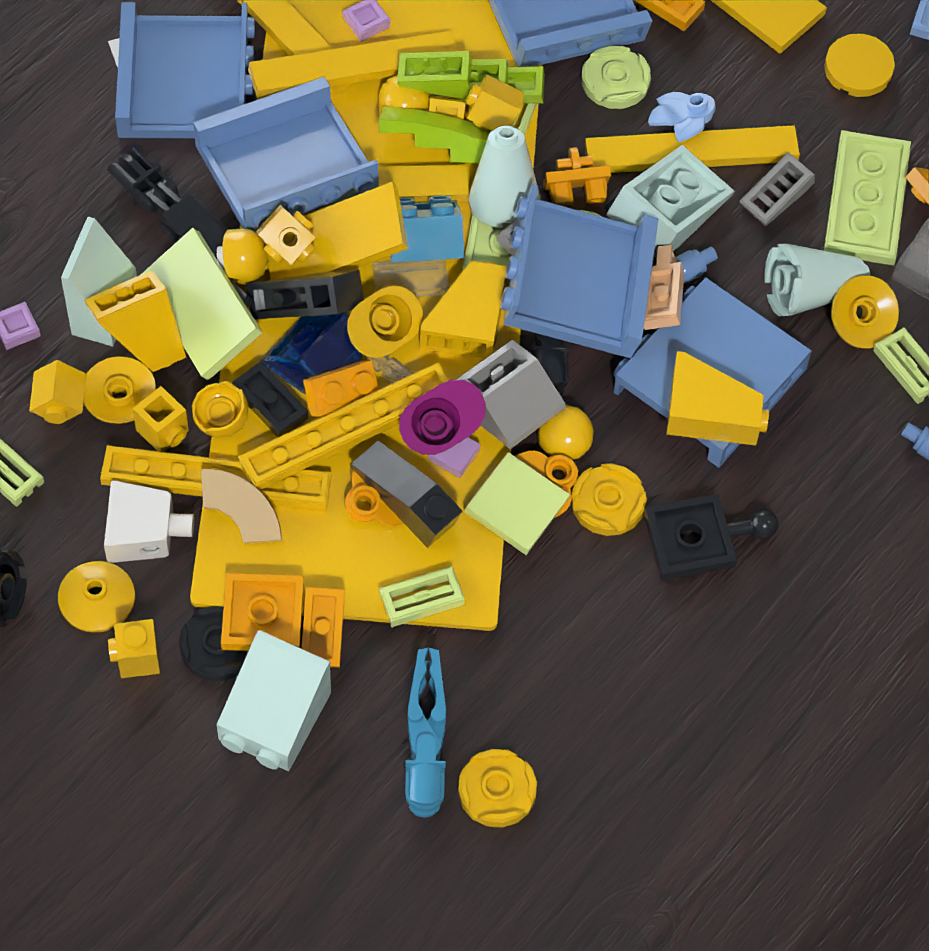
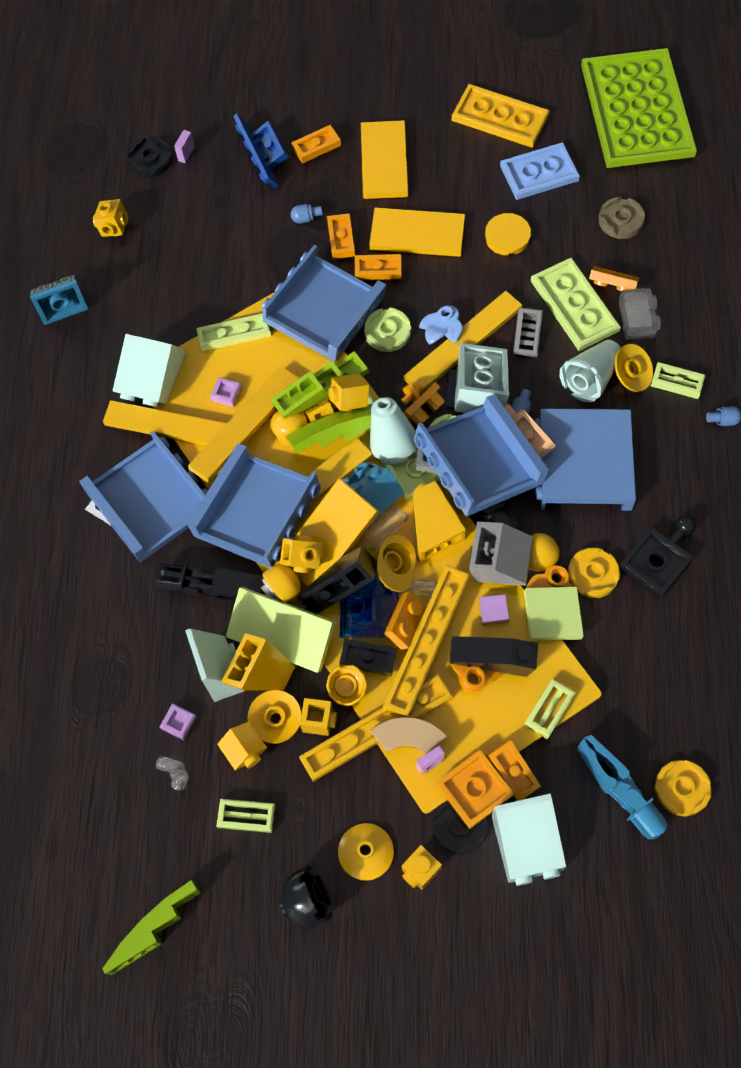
camera: 30 degrees left, 5 degrees up
(142, 523) = (357, 787): white torso -> none
(240, 548) = (430, 760): none -> lavender tile
(442, 417) = (480, 596): magenta piece -> none
(713, 404) = (612, 478): yellow slope -> none

